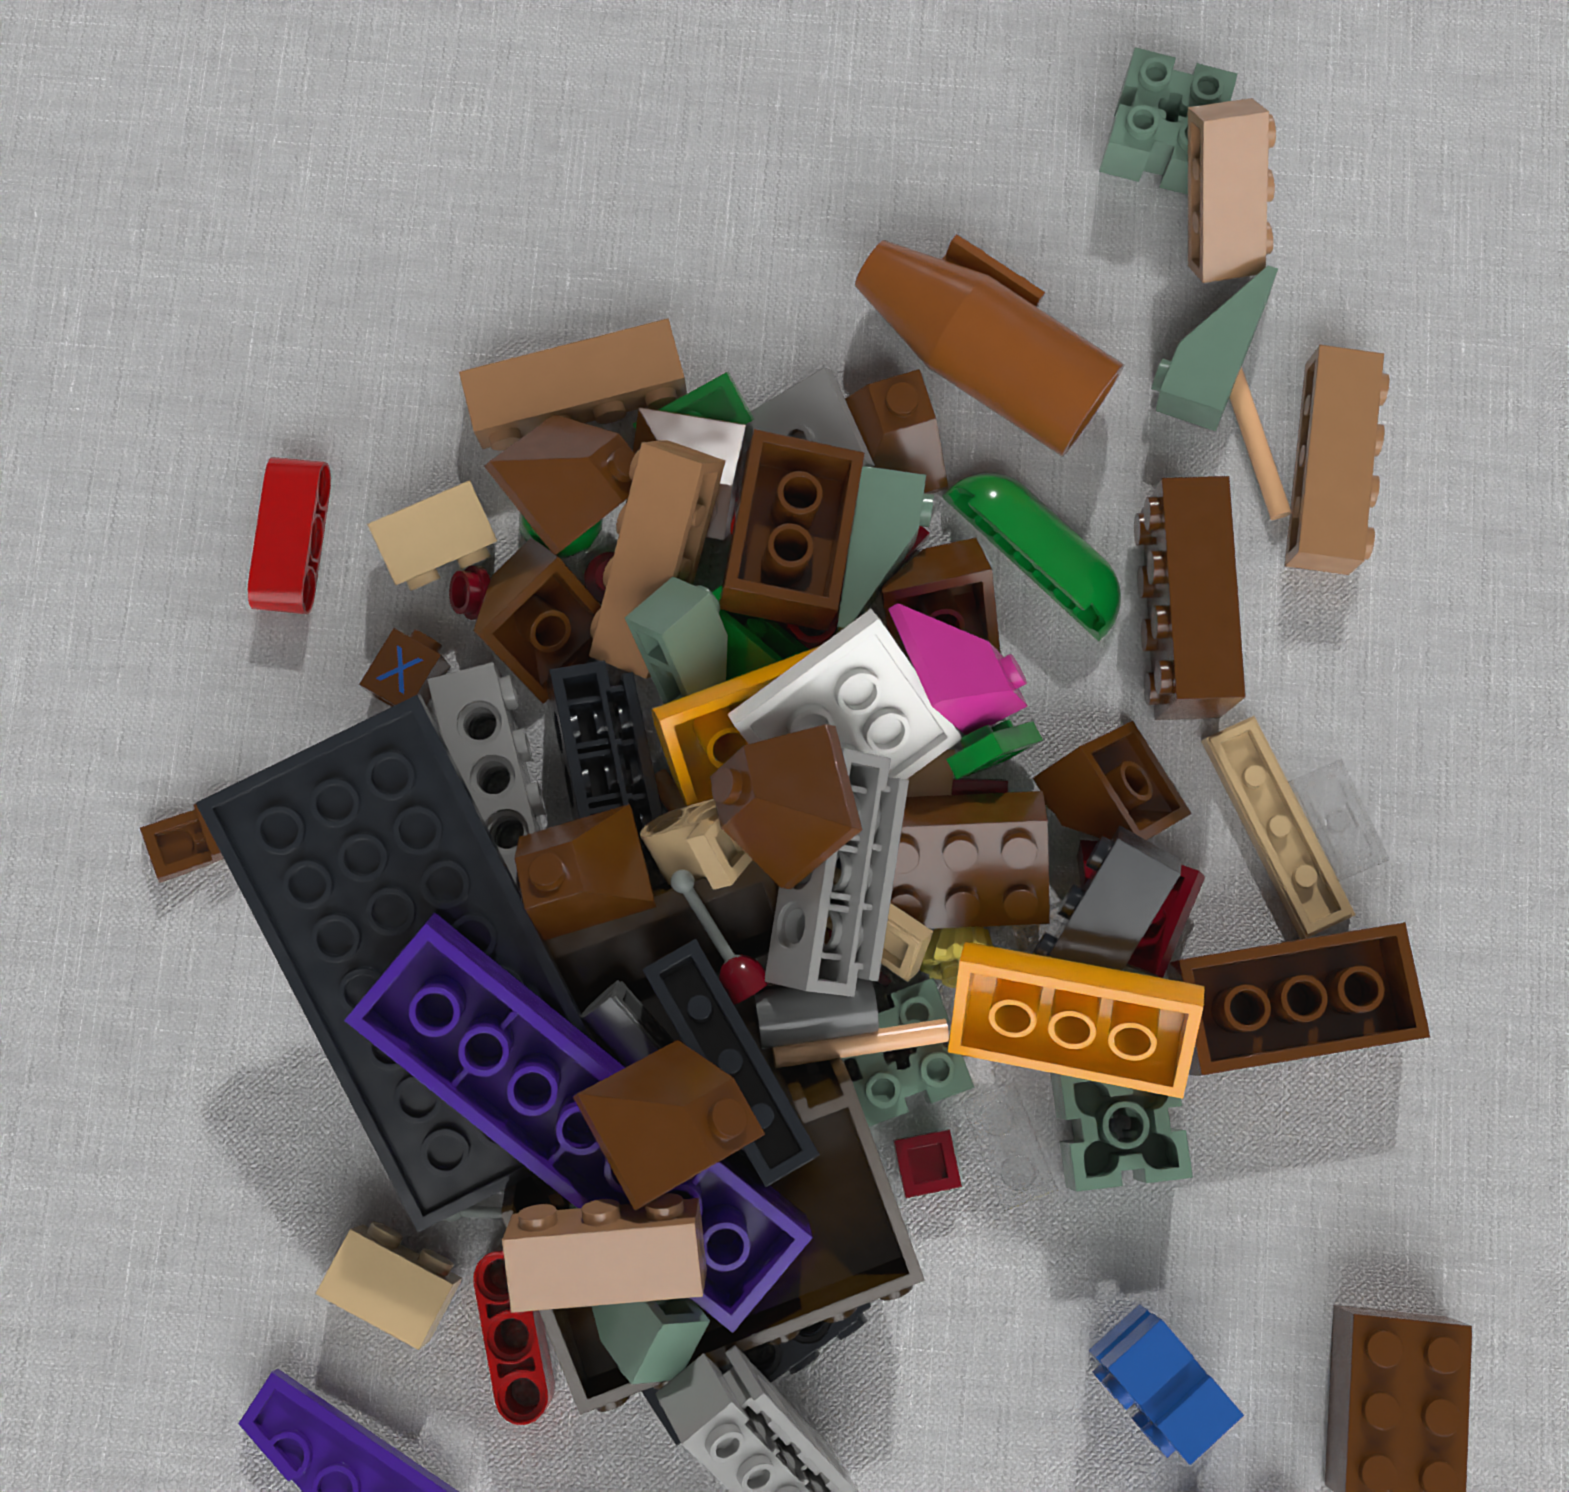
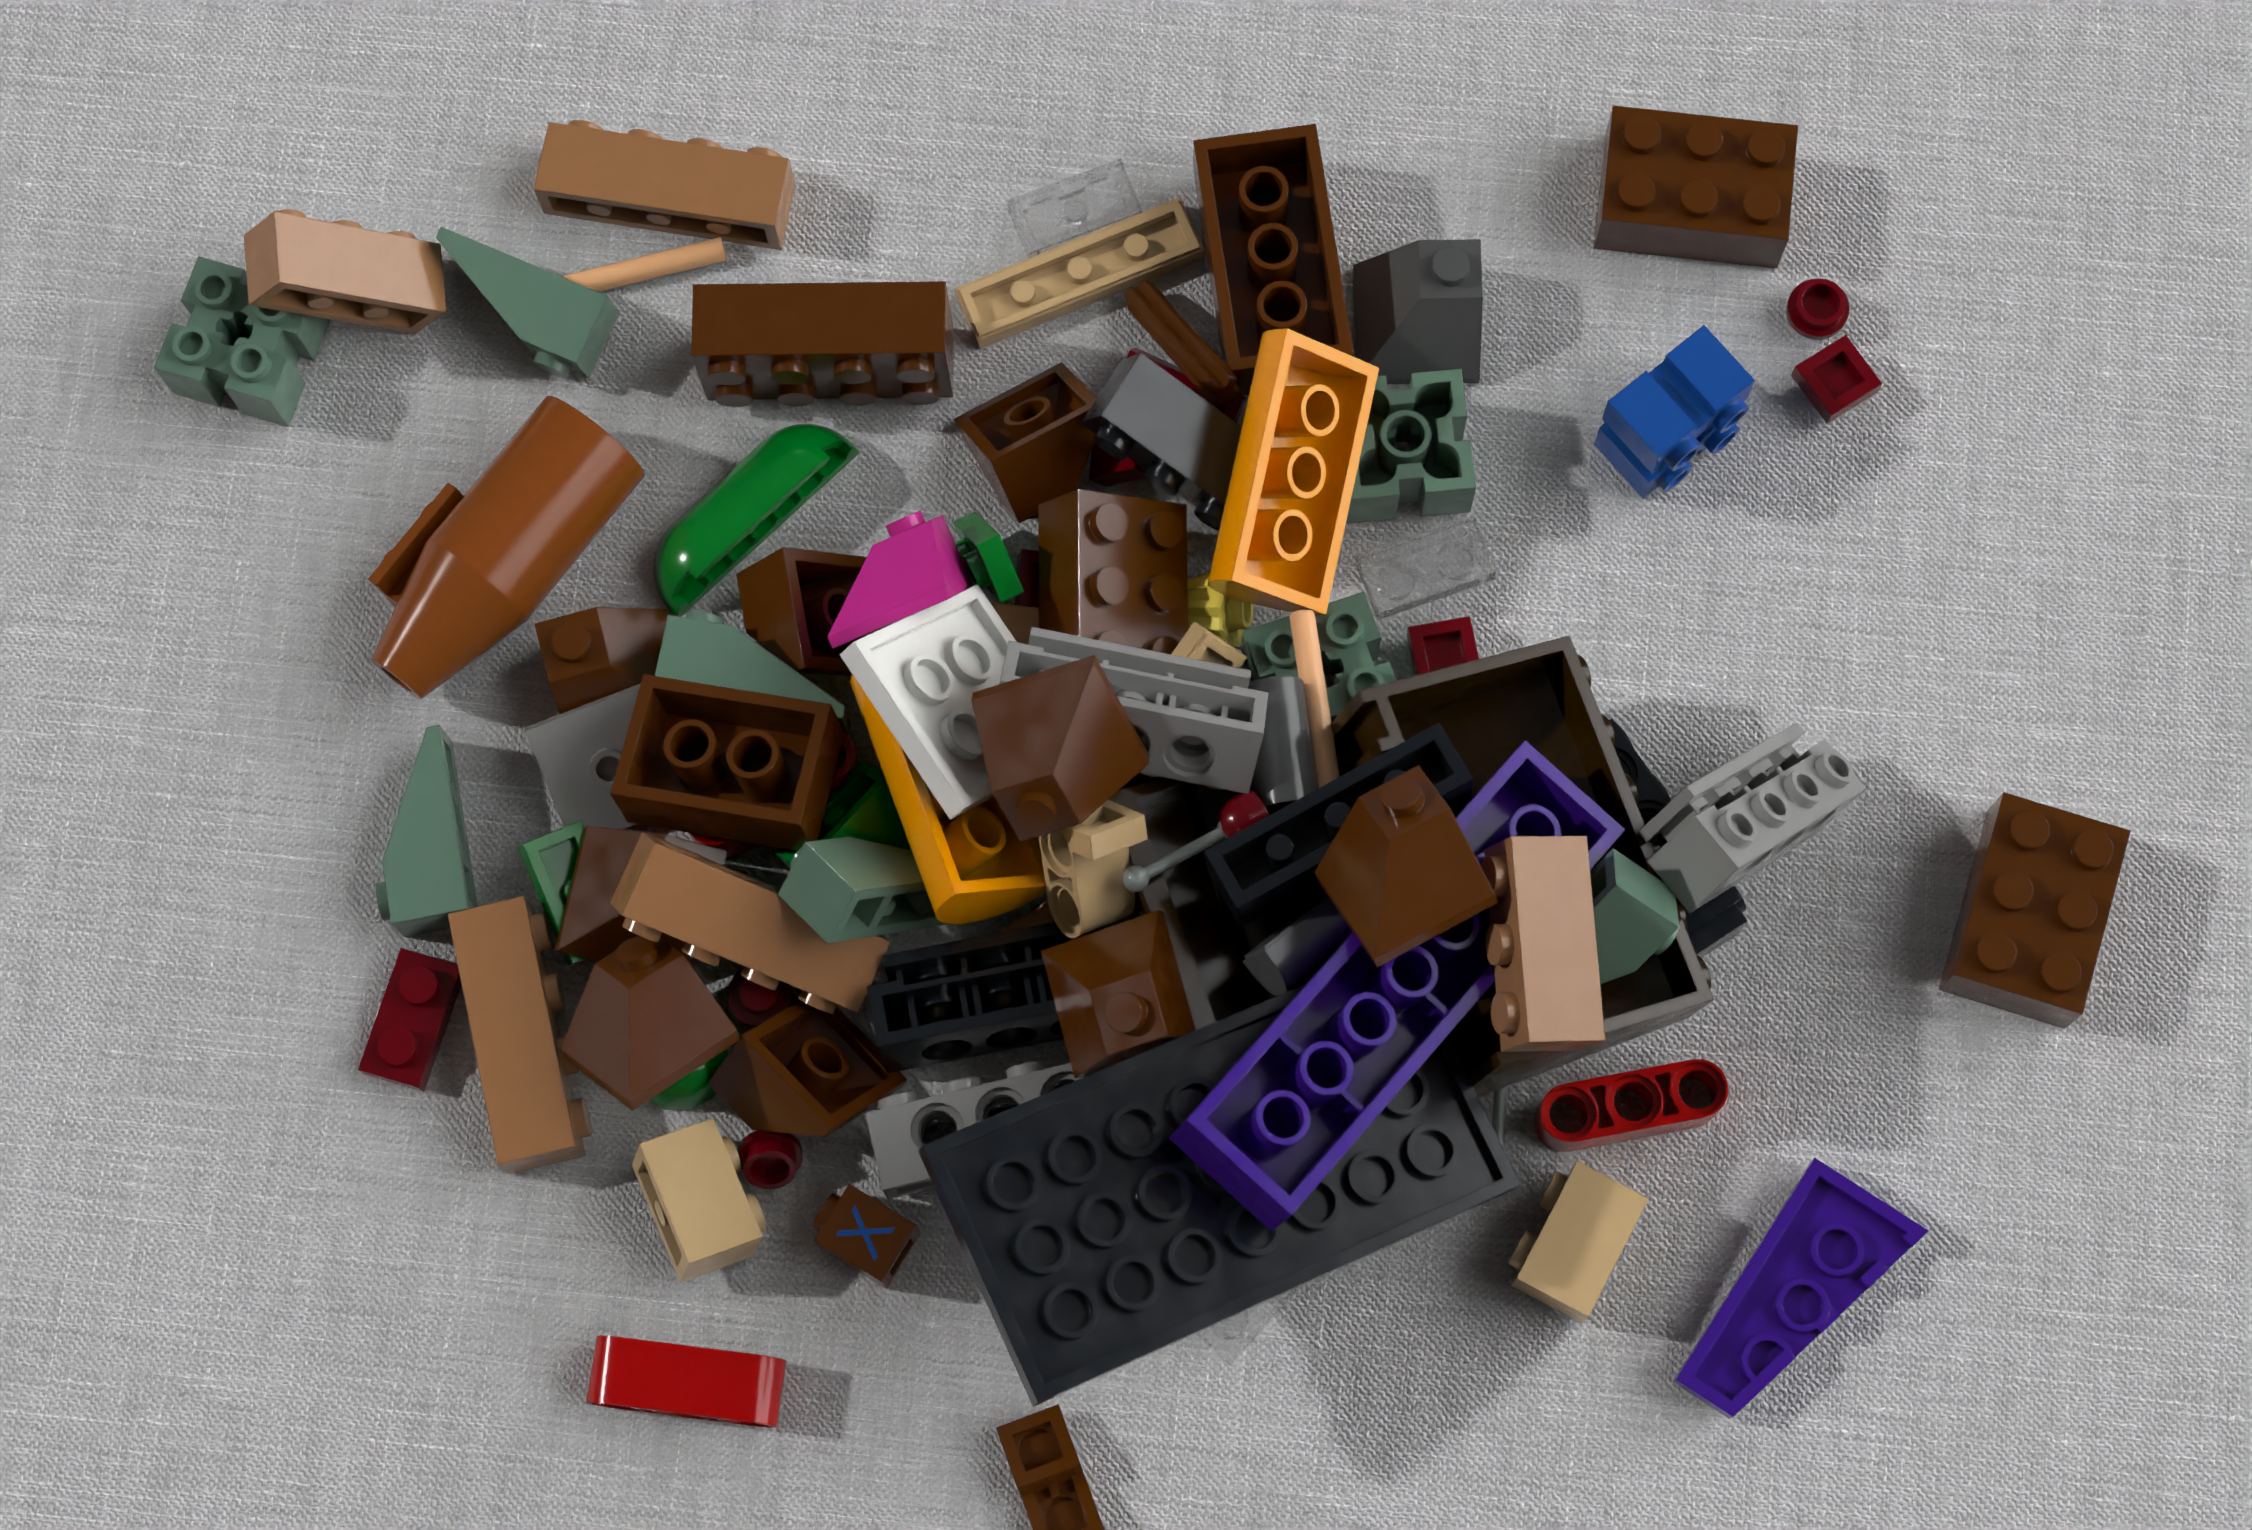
camera: 85 degrees left, 5 degrees down
(588, 302) = (411, 1020): none -> dark red plate
(726, 305) = (428, 849): none -> sand green slope
(1208, 918) = (1182, 343): none -> reddish brown axle
(1254, 1138) = (1420, 309): none -> dark grey slope

